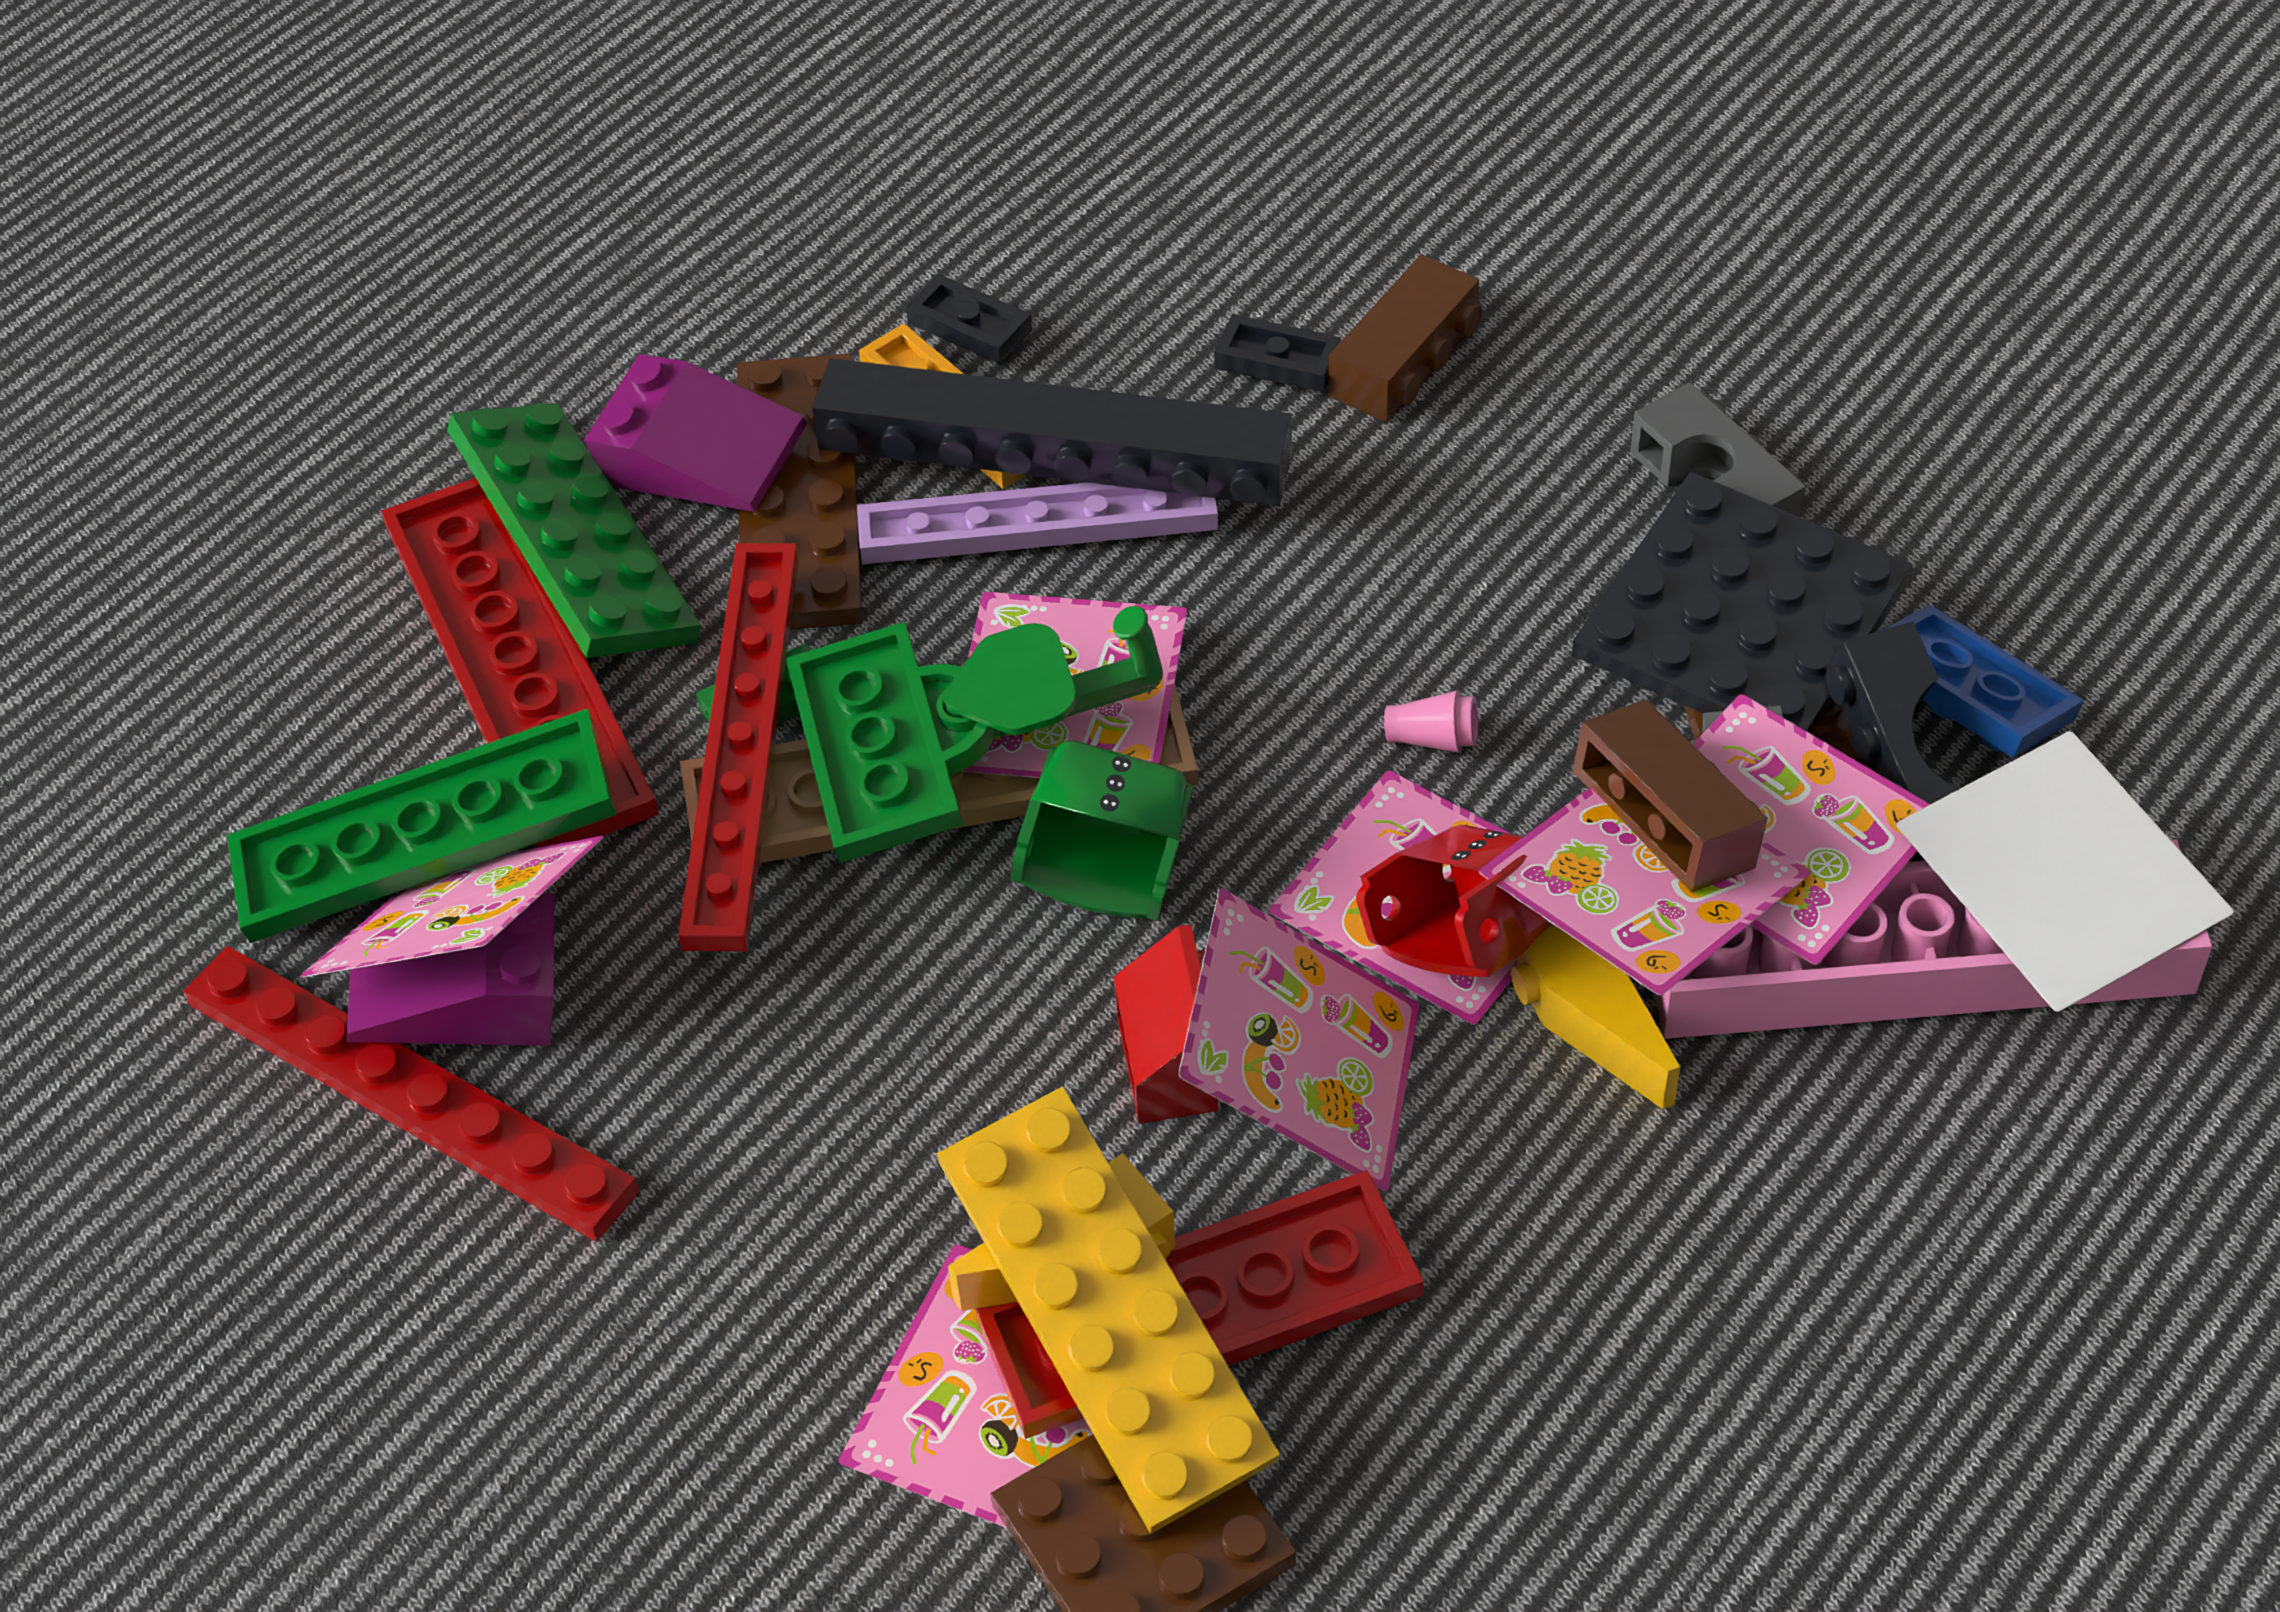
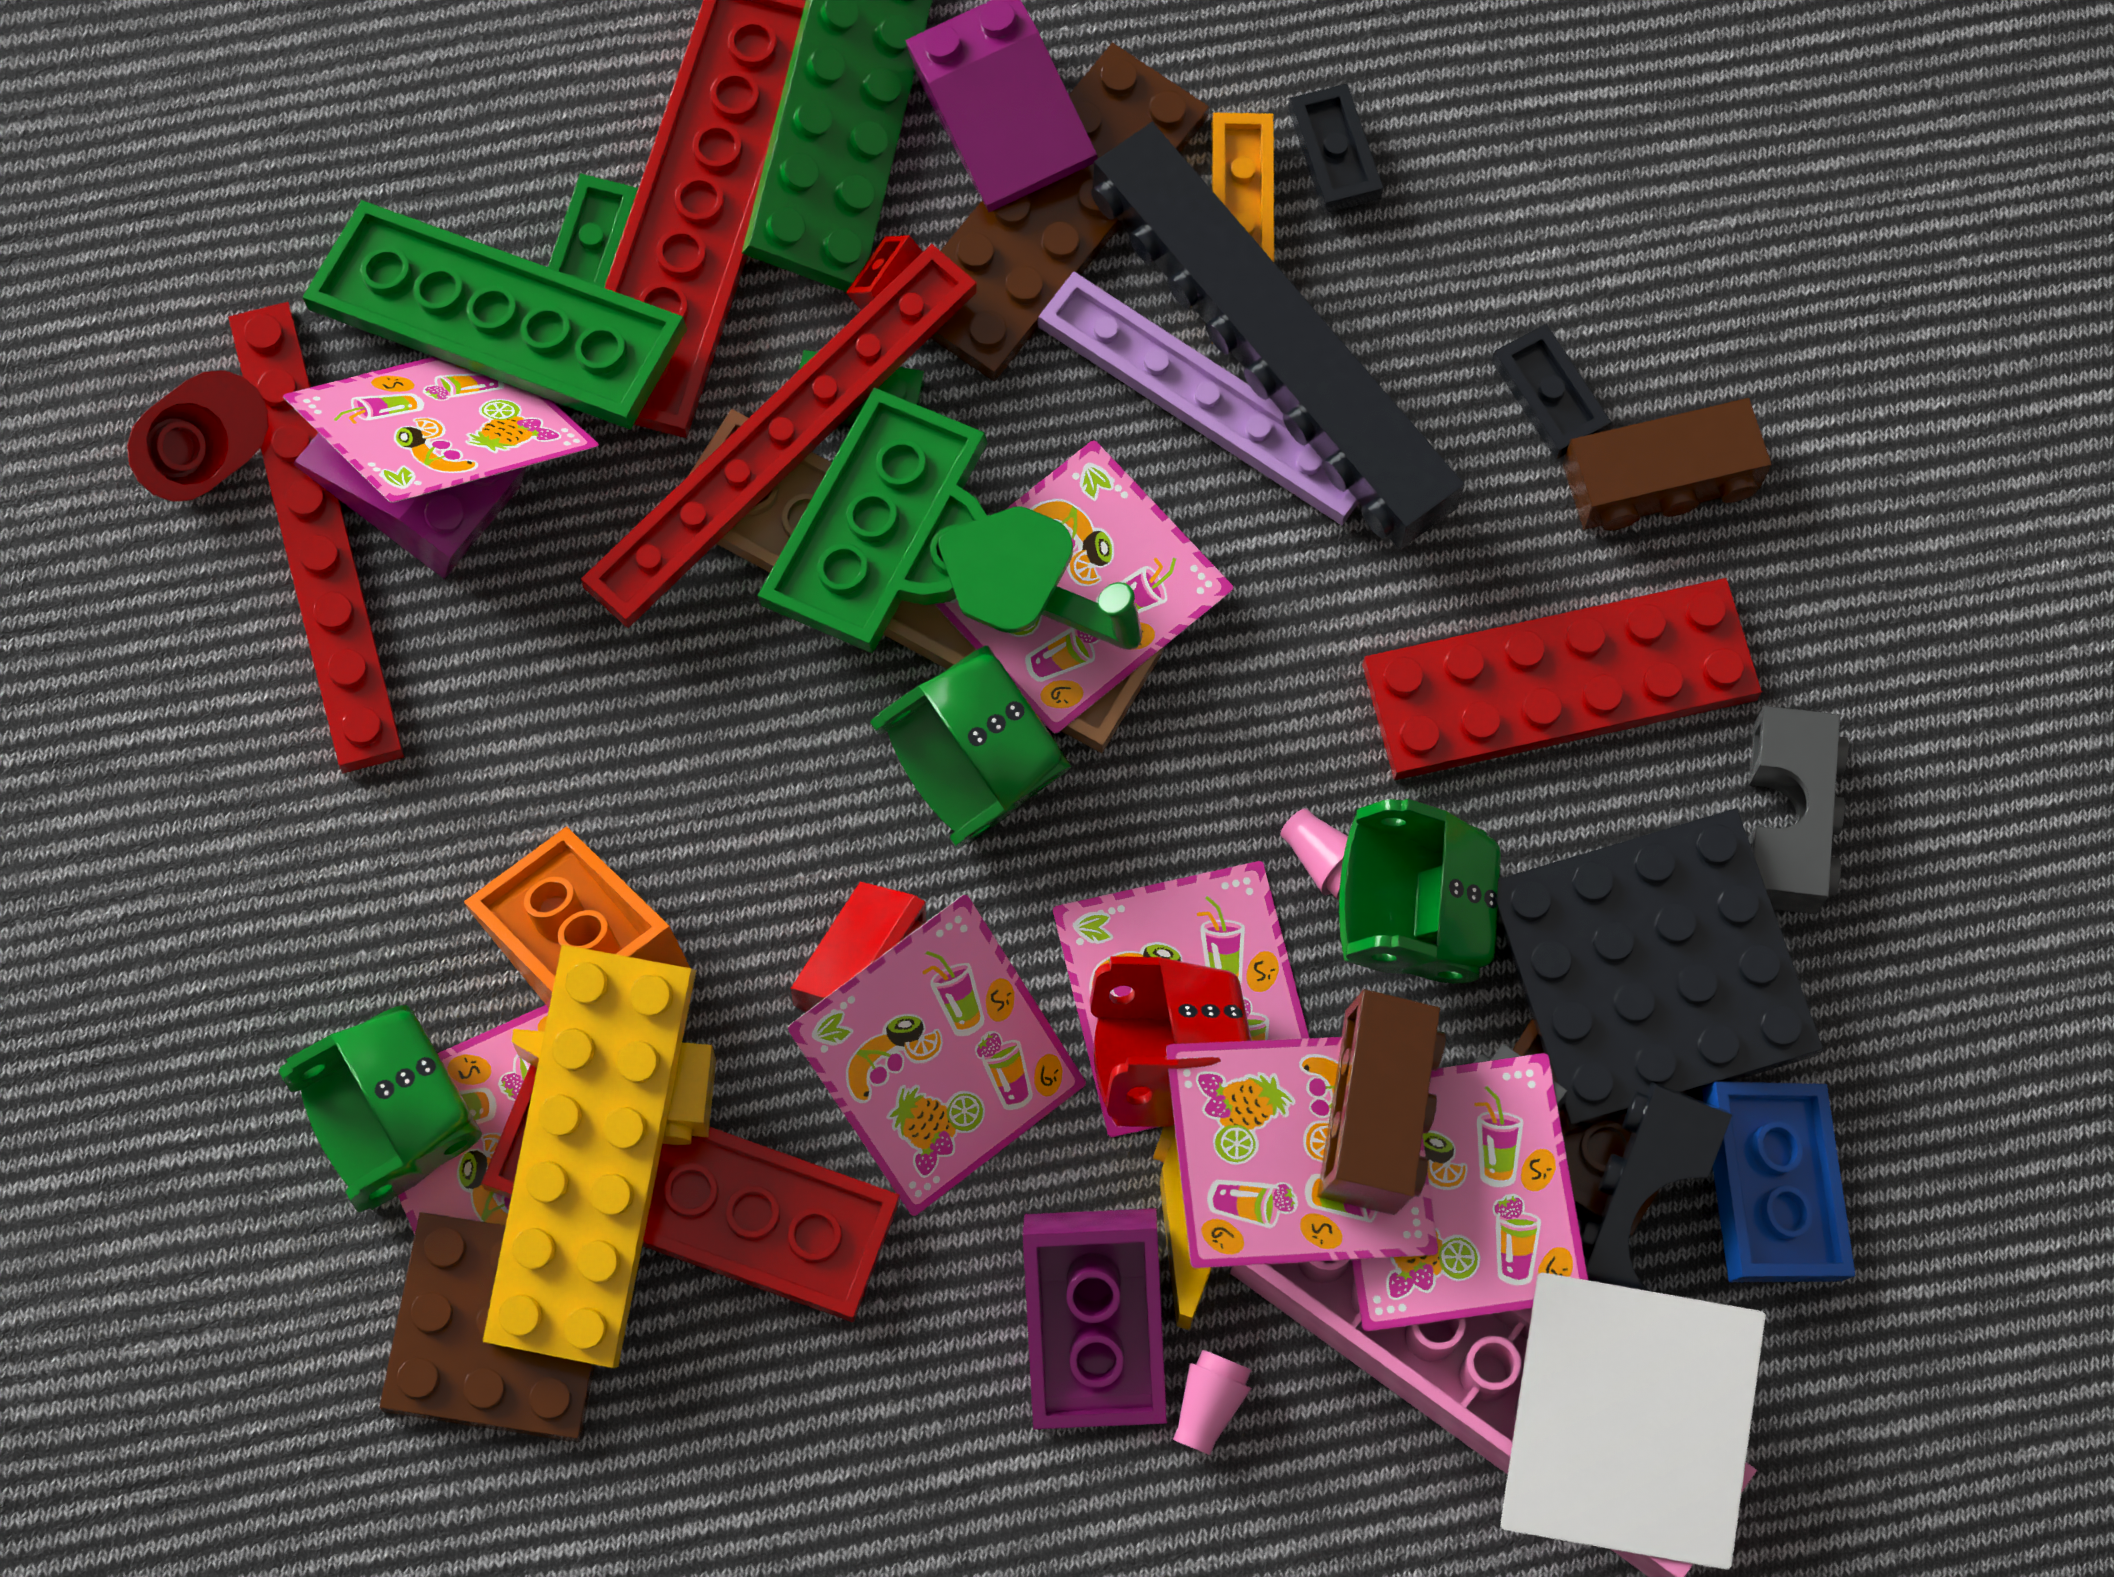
camera: 35 degrees right, 20 degrees up
(240, 1076) = (197, 435): none -> red piece
(442, 720) = (592, 229): none -> green plate
(708, 599) = (882, 268): none -> red piece
(879, 1435) = (381, 1105): none -> green piece
(888, 1197) = (568, 899): none -> orange slope
(1470, 514) = (1560, 678): none -> red plate
(1531, 689) = (1418, 892): none -> green piece
(1604, 1137) = (1094, 1318): none -> magenta slope
(1746, 1123) = (1210, 1400): none -> bright pink cone

